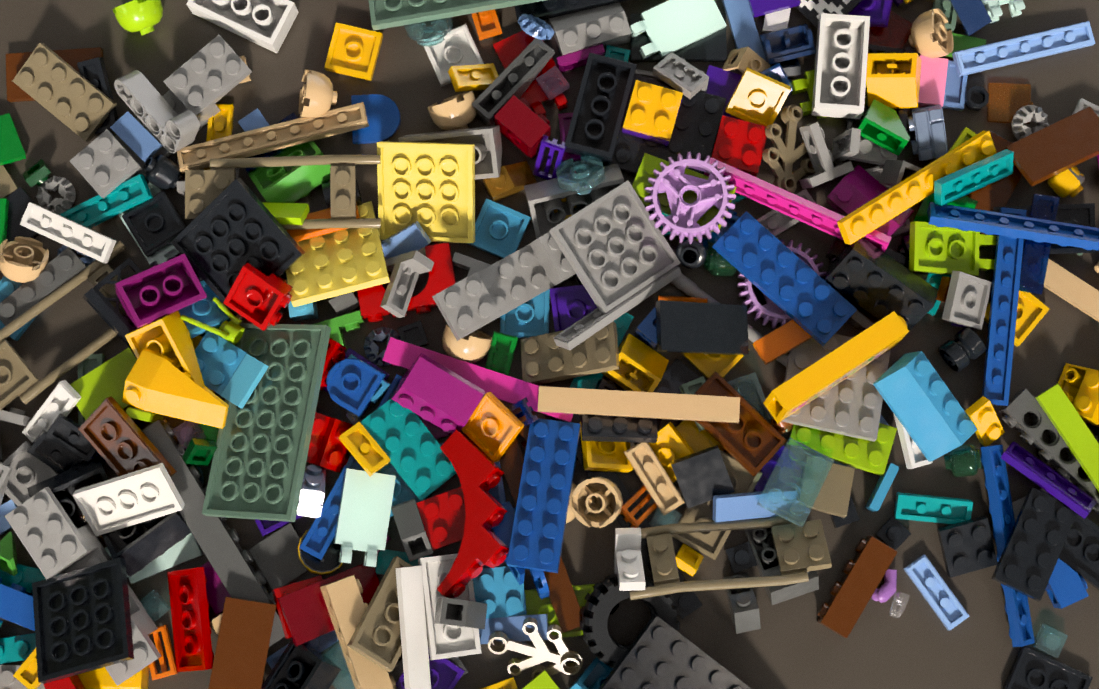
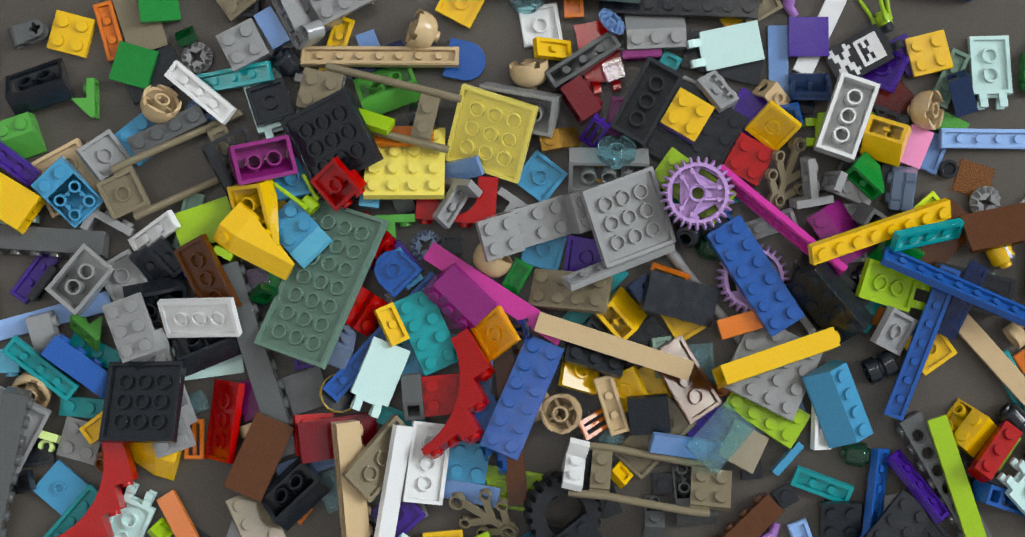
camera: 10 degrees right, 5 degrees up
(460, 613) = (434, 471): dark grey slope -> none
(985, 420) = (881, 427): yellow plate -> none

